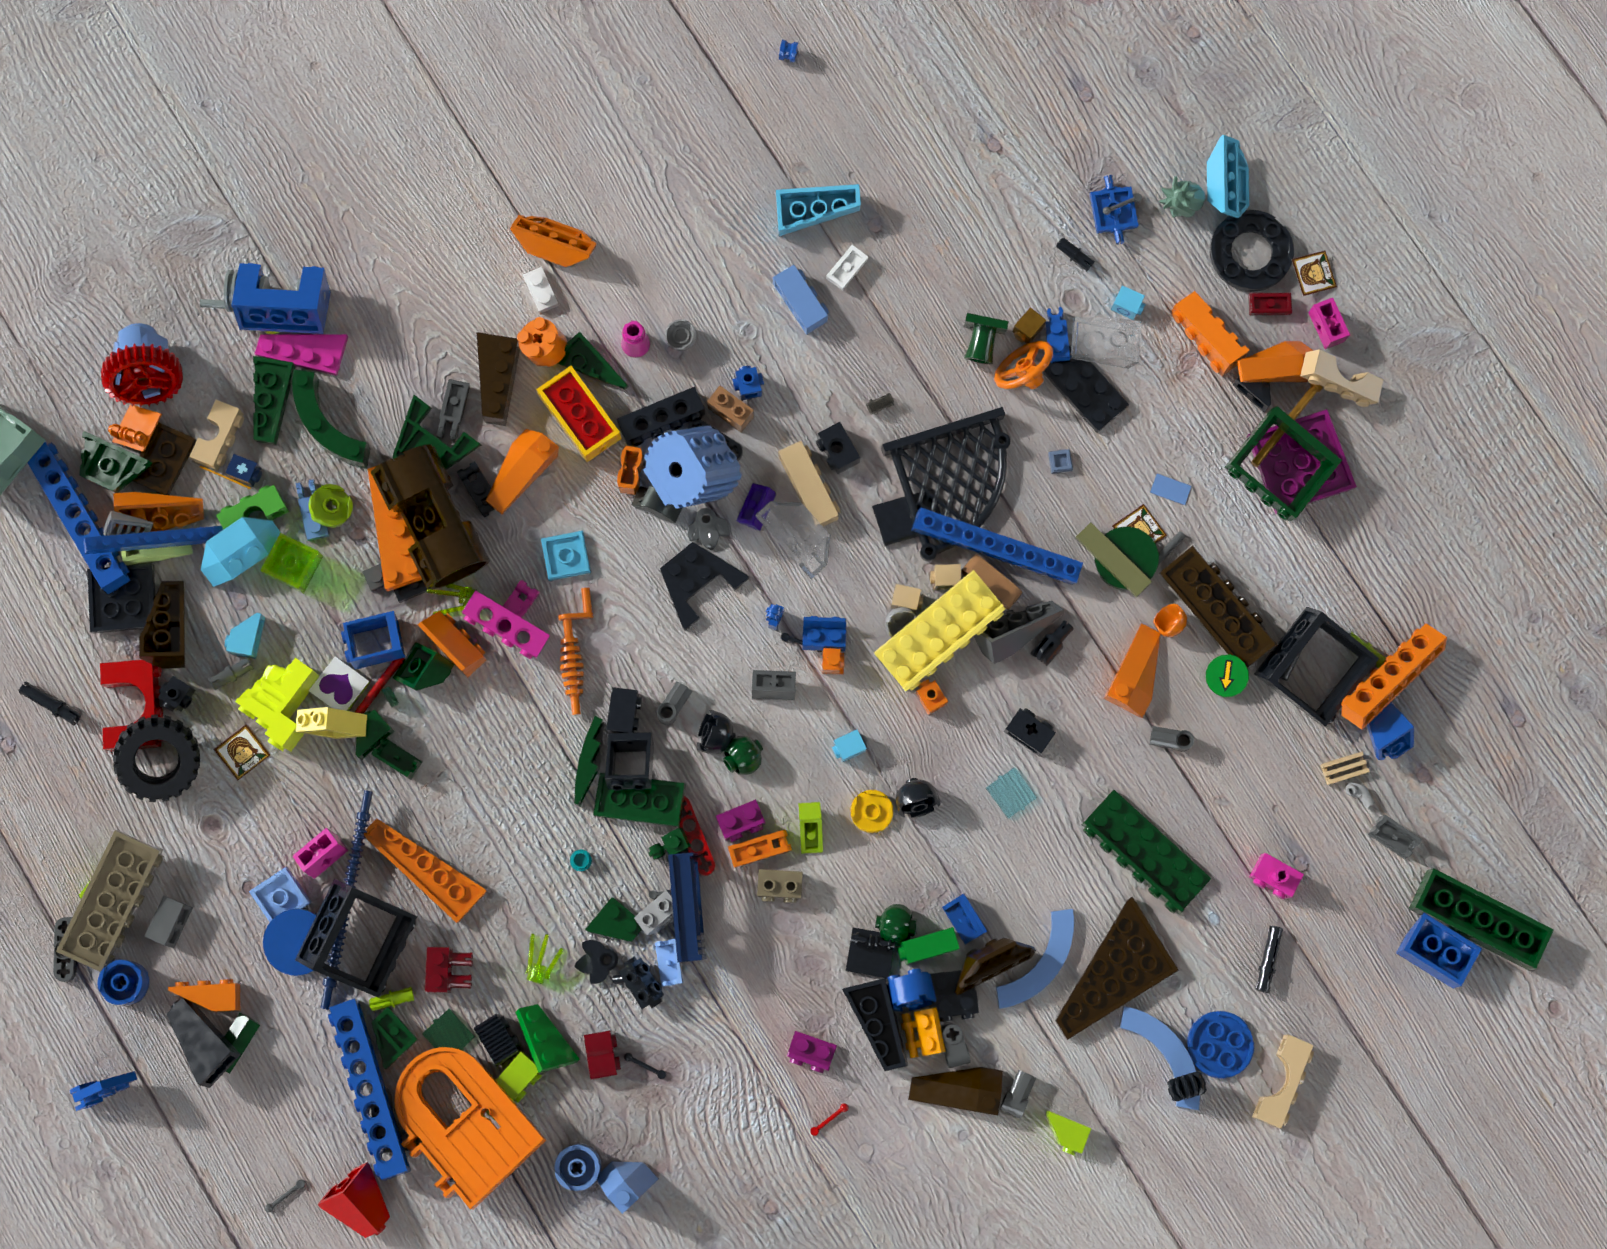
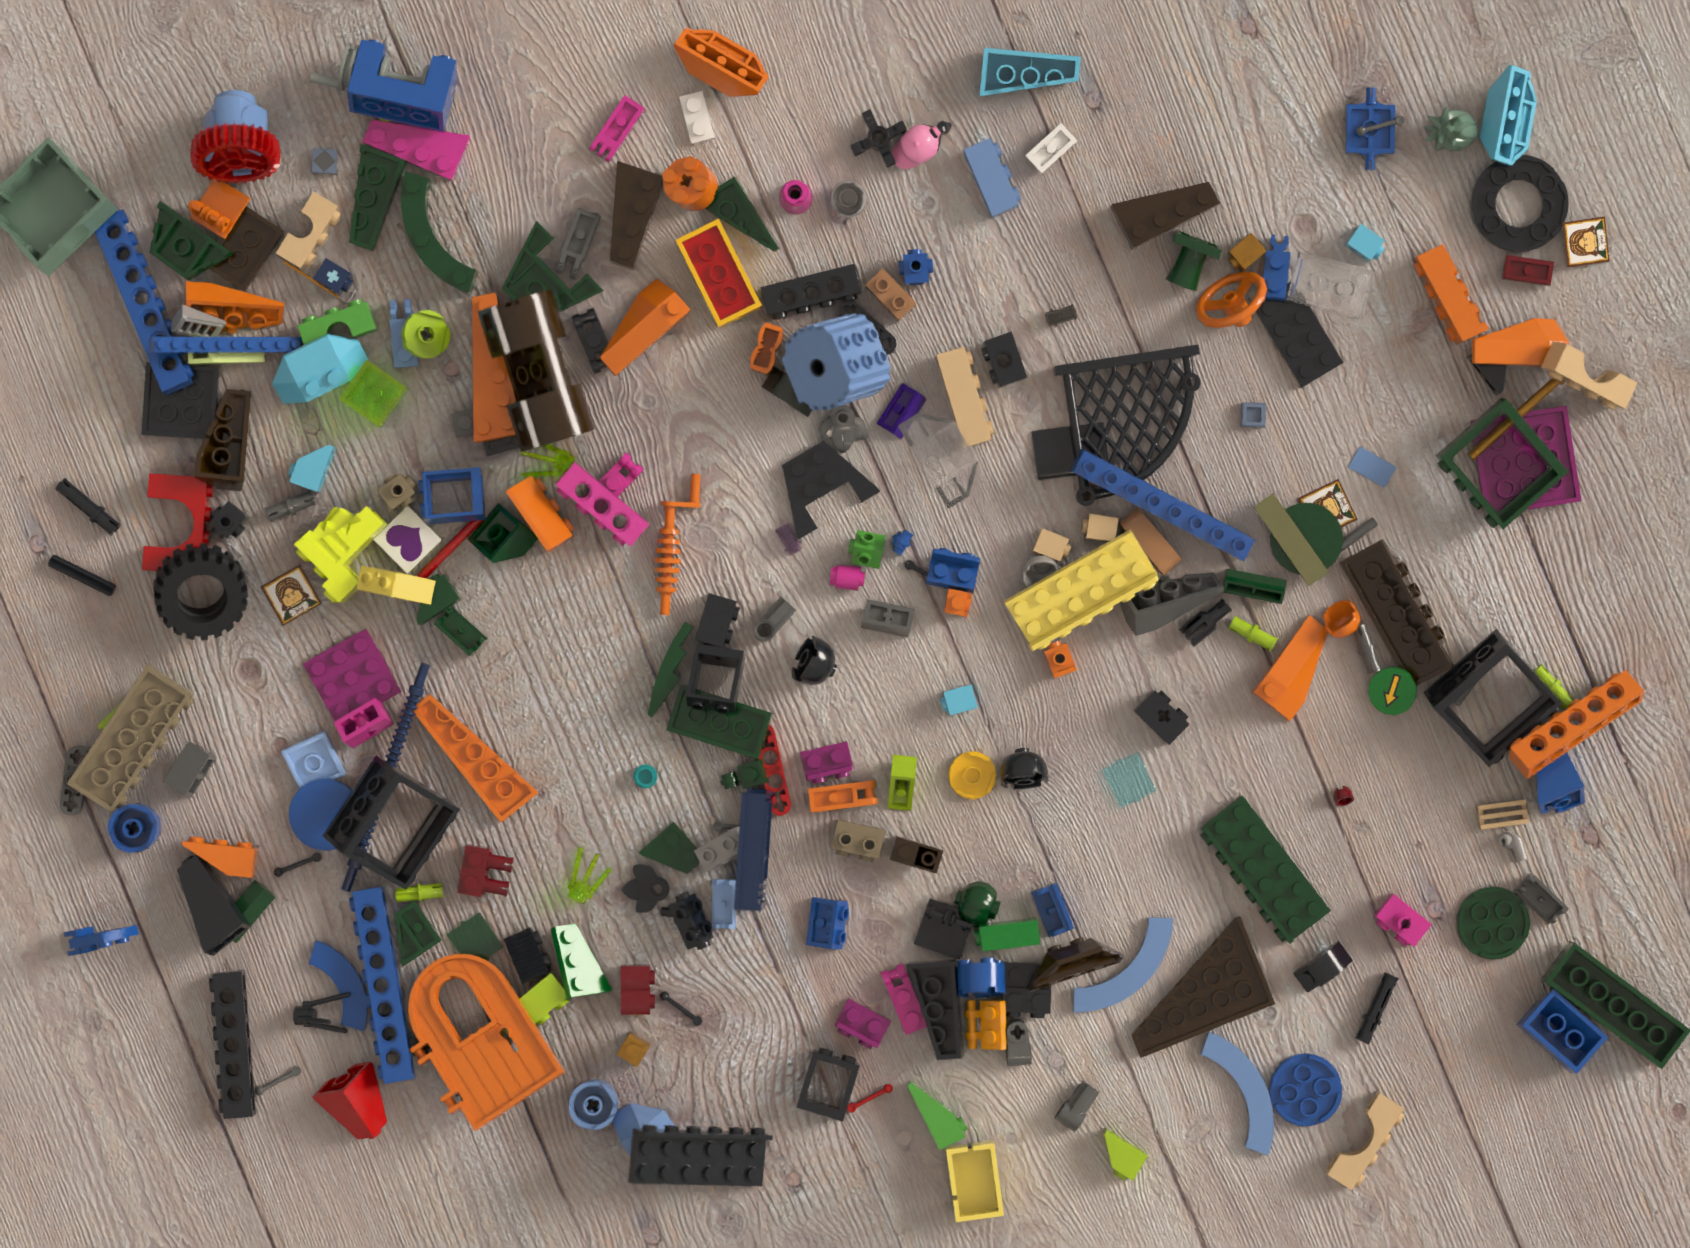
camera: 15 degrees right, 10 degrees up
(51, 764) = (81, 575): none -> black axle
(224, 376) = (324, 161): none -> tile
(248, 1177) = (235, 982): none -> black brick
(293, 983) = (316, 857): none -> black hinge
(304, 812) = (351, 675): none -> magenta plate
(304, 1130) = (307, 1016): none -> black plant
(317, 642) = (390, 495): none -> dark tan brick
(337, 1093) = (347, 980): none -> blue tile
(390, 696) = (462, 561): clear green tile -> none
(473, 308) = (617, 127): none -> dark pink hinge
(565, 555) = (679, 432): medium azure tile -> none
(607, 1110) = (633, 1049): none -> pearl gold brick
(679, 635) = (789, 539): none -> clear purple pin
(680, 1198) = (697, 1156): none -> black bracket
(711, 273) = (866, 144): none -> black pin
(732, 655) = (846, 577): none -> dark pink brick
(733, 281) = (919, 144): none -> bright pink hair
(743, 755) = (841, 691): dark green plant -> none
(745, 627) = (867, 549): none -> bright green brick
(764, 965) = (827, 923): none -> blue bracket
(785, 1135) = (819, 1107): none -> black window
(834, 889) = (916, 854): none -> dark brown slope
(845, 1023) = (904, 999): none -> dark pink plate
(897, 1129) = (940, 1120): none -> bright green slope
(938, 1179) = (974, 1181): none -> light yellow piece
(950, 304) = (1158, 213): none -> dark brown wedge
(966, 1089) = (1022, 1092): dark brown wedge -> none
(1075, 254) = (1315, 174): black axle -> none
(1089, 605) = (1254, 586): none -> dark green piece
(1095, 646) = (1252, 633): none -> lime pin
(1169, 738) = (1314, 749): dark grey piece -> none
(1186, 1086) = (1258, 1129): black gear -> none
(1197, 644) = (1367, 649): none -> dark grey pin
(1202, 775) = (1343, 796): none -> dark red hinge
(1214, 930) = (1323, 967): none -> black brick
(1329, 323) = (1589, 306): dark pink brick -> none
(1356, 865) = (1493, 922): none -> dark green tile

